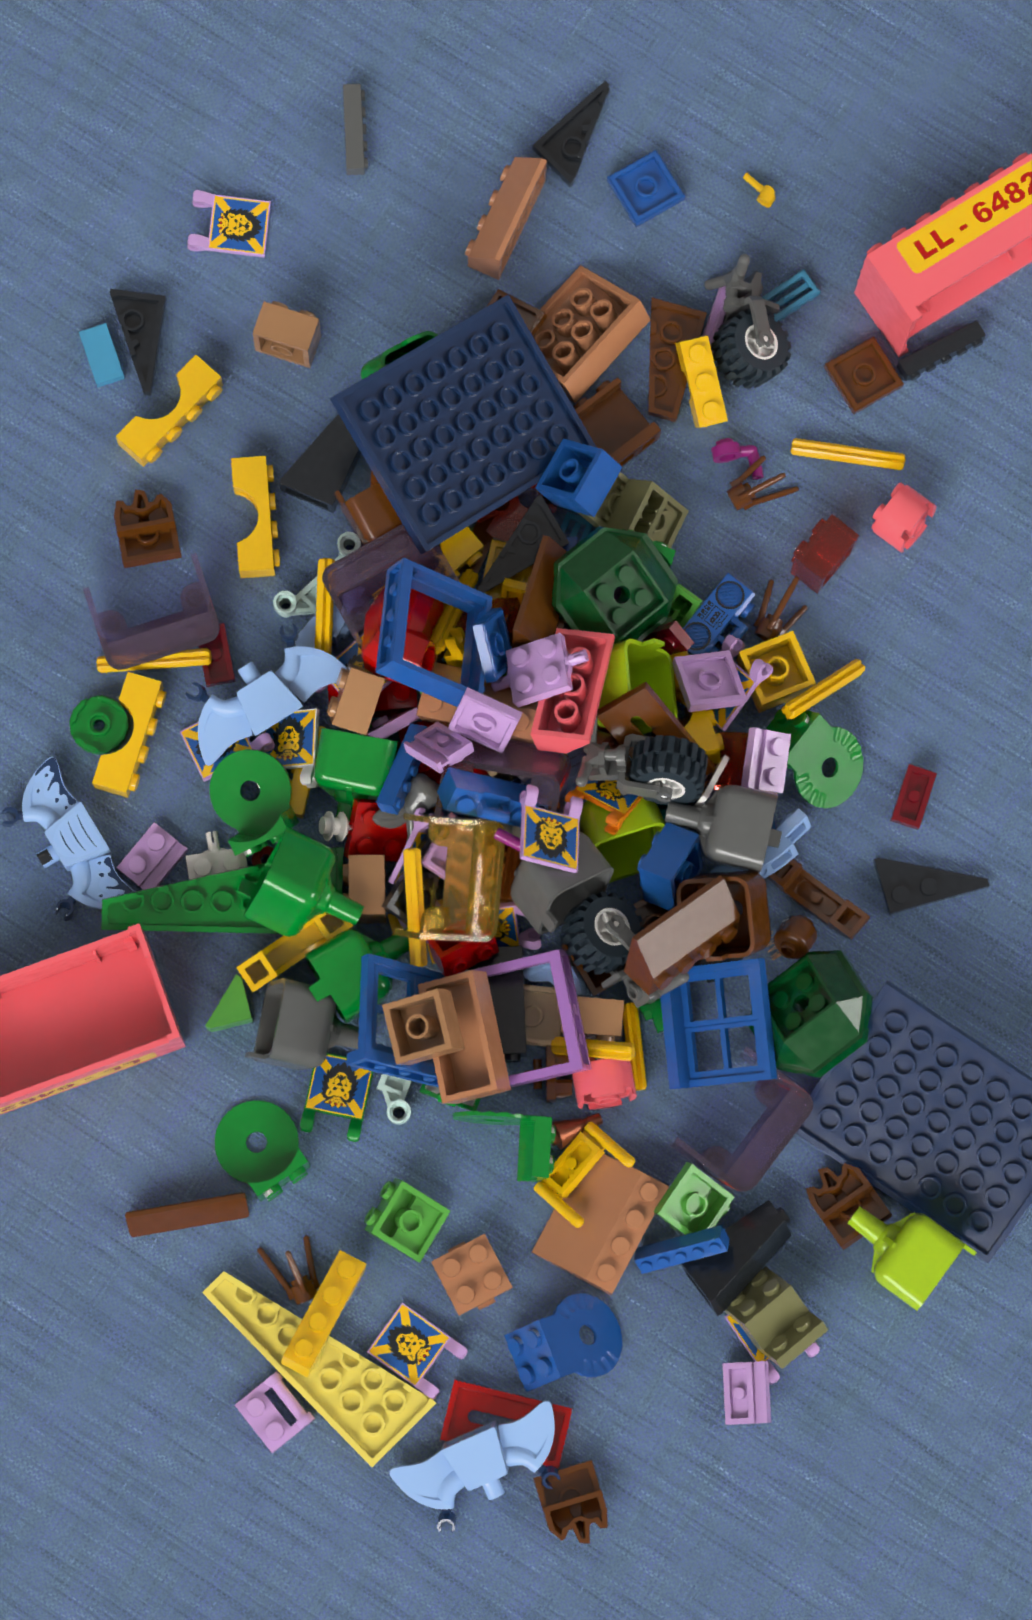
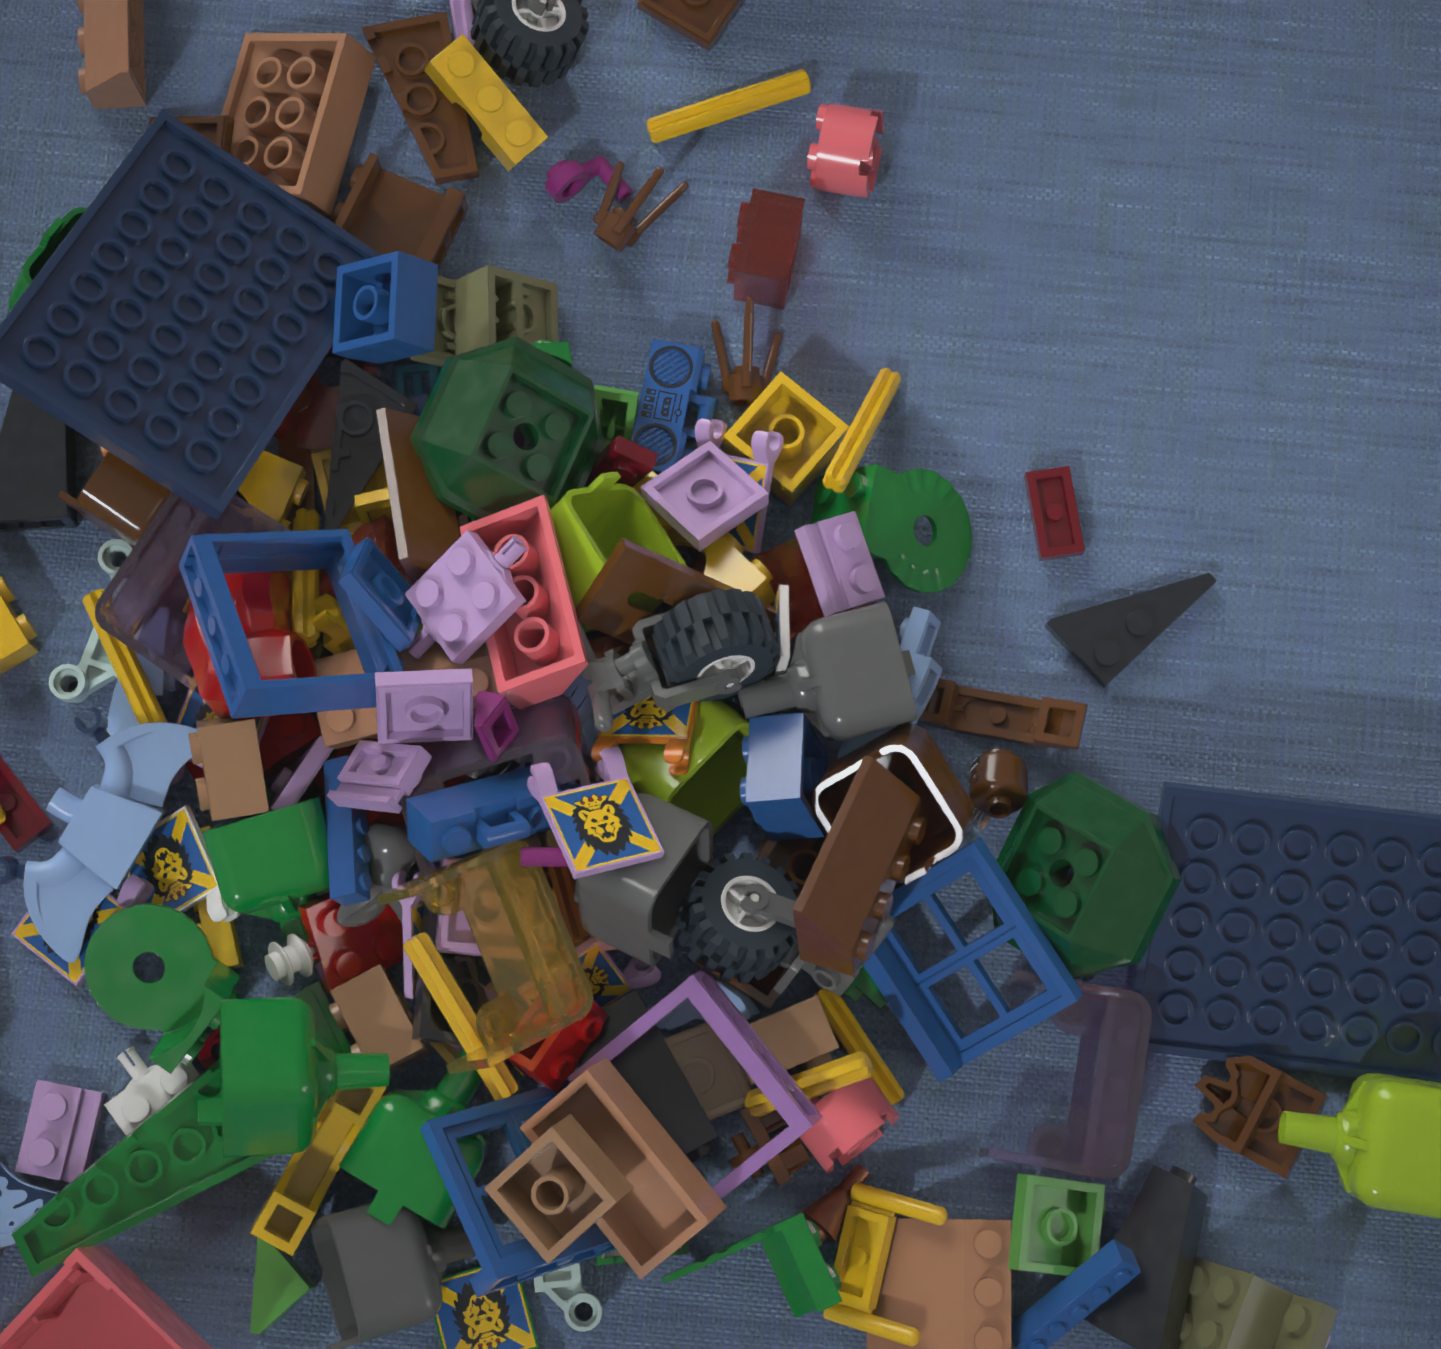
camera: 25 degrees left, 0 degrees up
(519, 750) = (494, 723): none -> magenta slope

